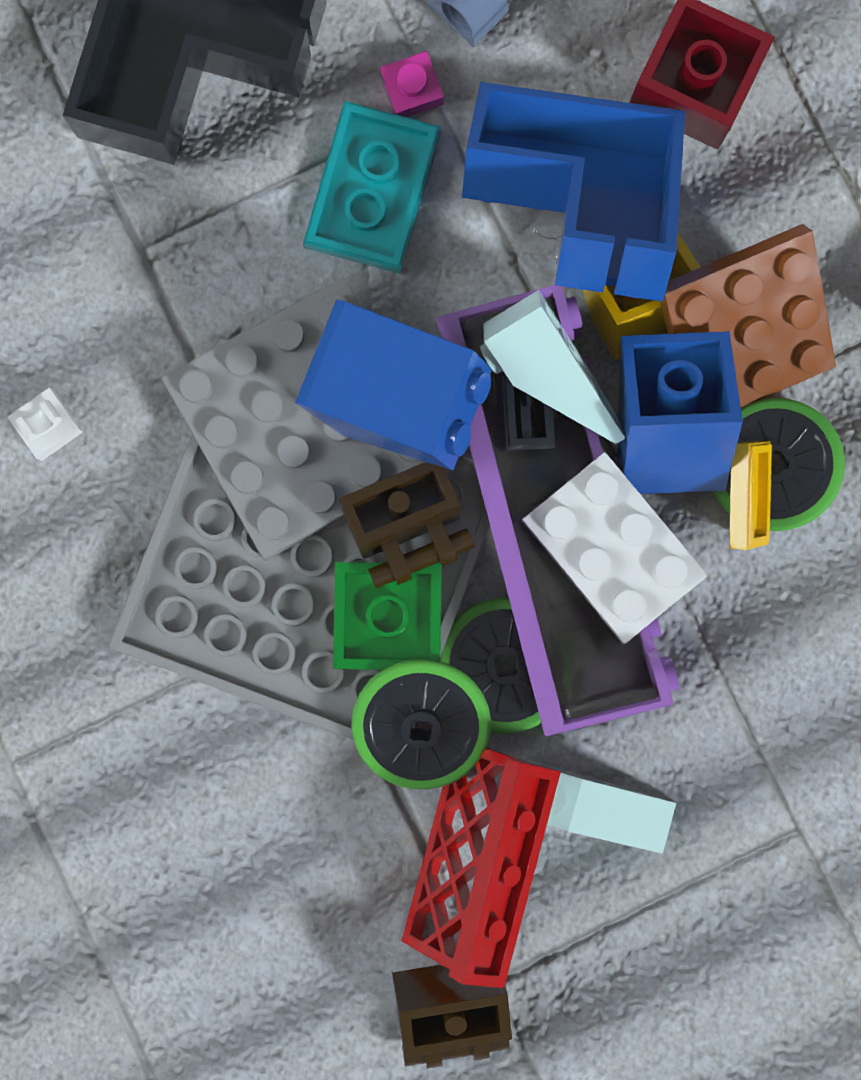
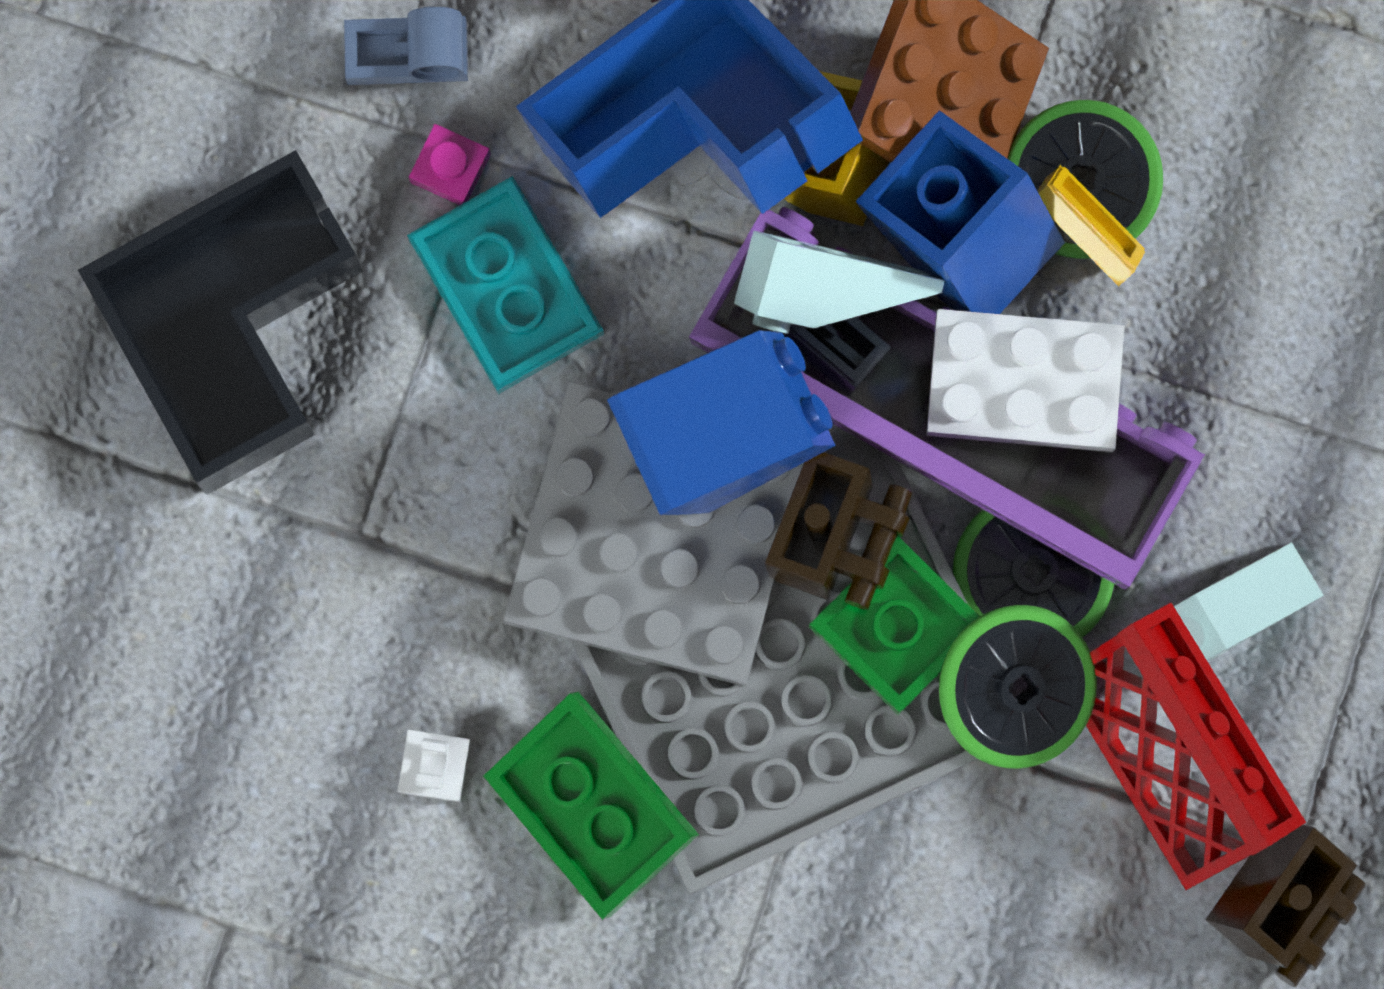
camera: 40 degrees left, 5 degrees down
(103, 537) = (590, 805): none -> green plate

